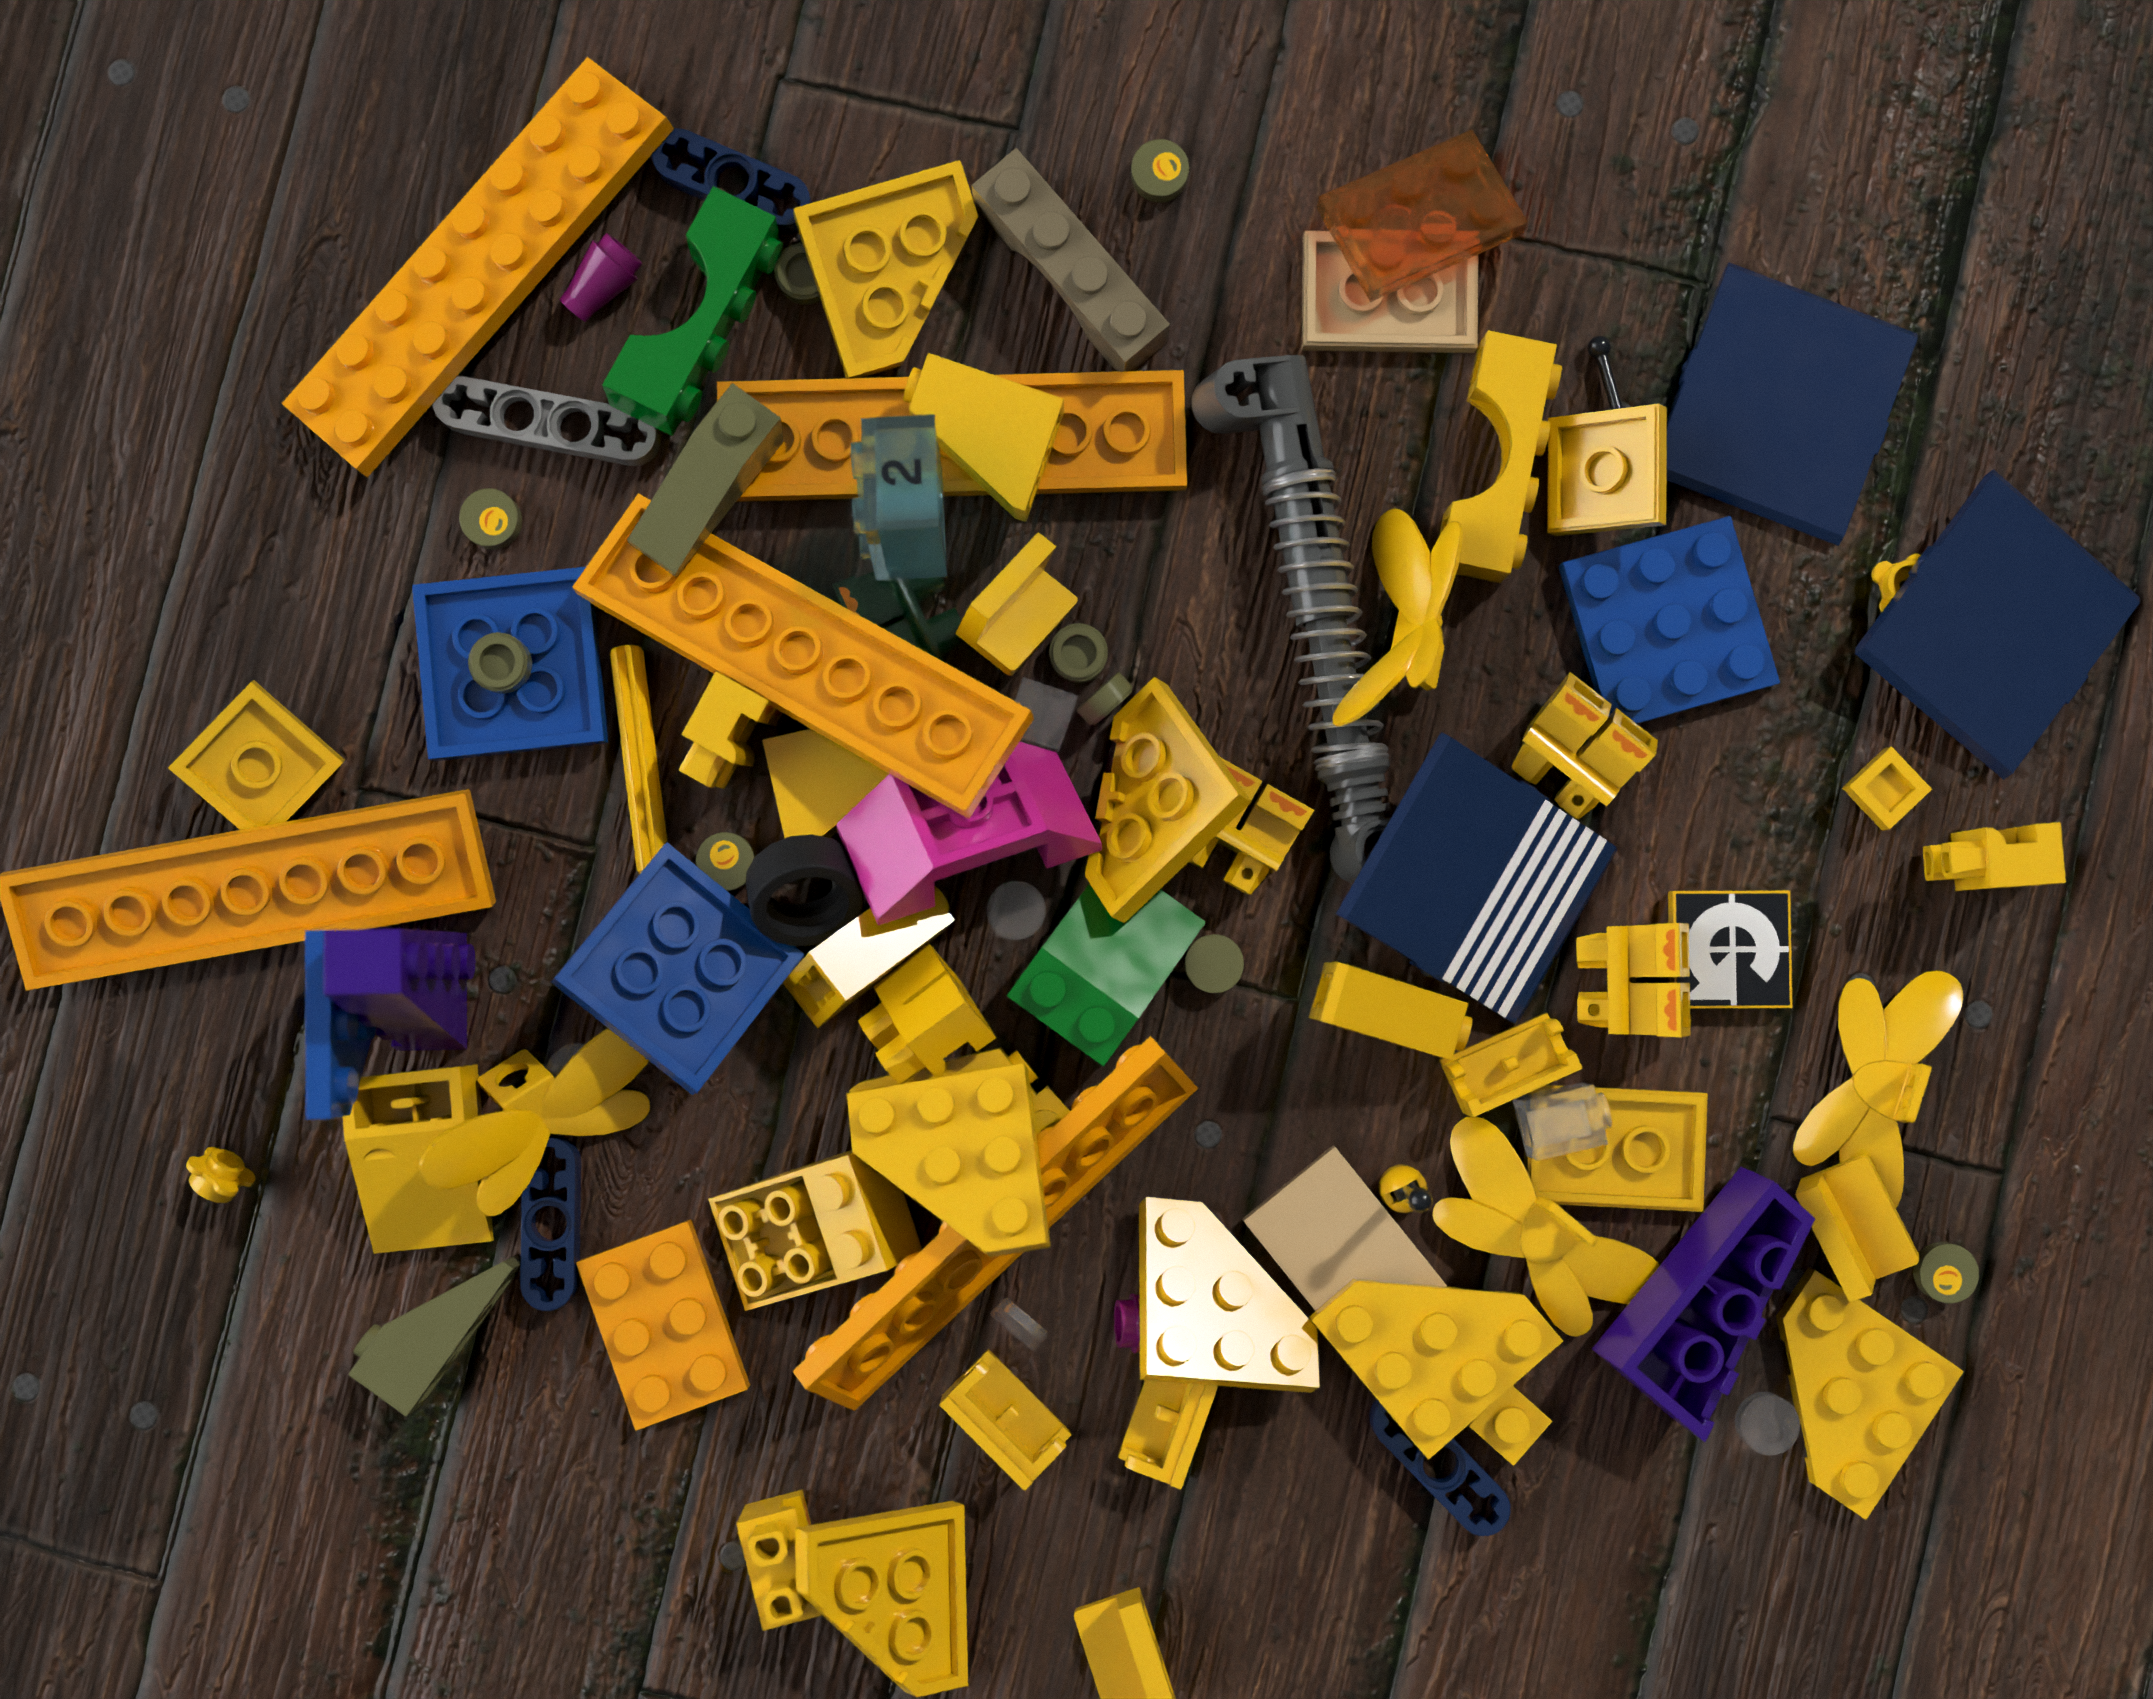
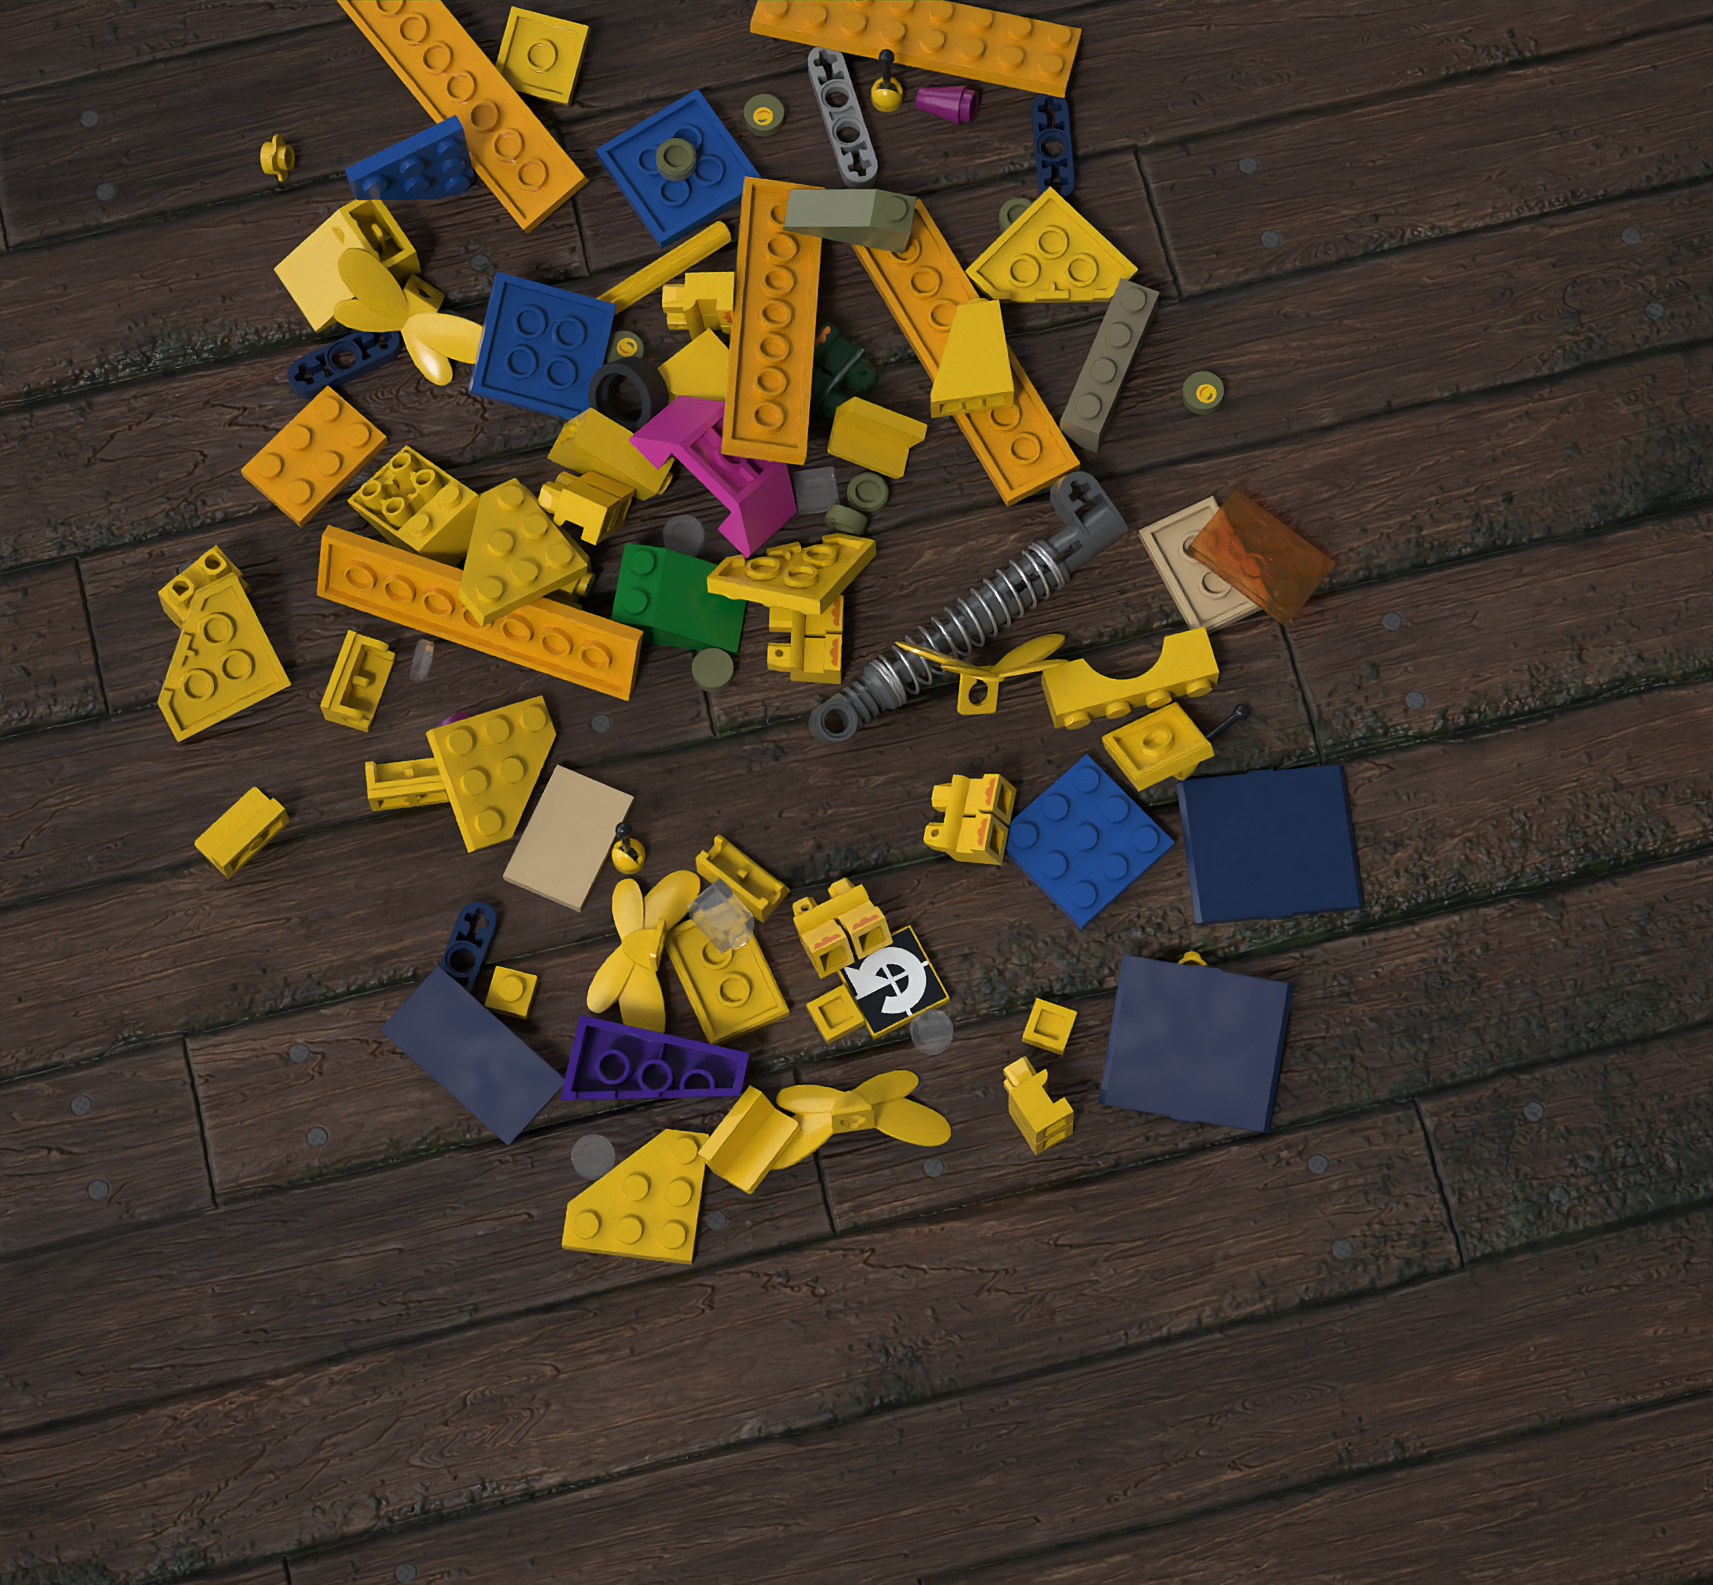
camera: 65 degrees right, 15 degrees down
(402, 984) = (453, 193): dark purple wedge -> none
(417, 1349) = (234, 322): olive slope -> none
(550, 351) = (883, 90): none -> yellow hinge
(662, 373) = (907, 165): green arch -> none
(900, 497) = (899, 326): clear light blue brick -> none
(1390, 1010) = (737, 779): yellow slope -> none
(1434, 1350) = (534, 915): yellow plate -> none
(1477, 879) = (850, 795): dark blue piece -> none
(1580, 1516) = (473, 1055): none -> dark blue tile
(1741, 1039) = (835, 1014): none -> yellow plate
(1818, 932) = (931, 1032): none -> clear tile
(1946, 1272) = (751, 1222): olive tile -> none

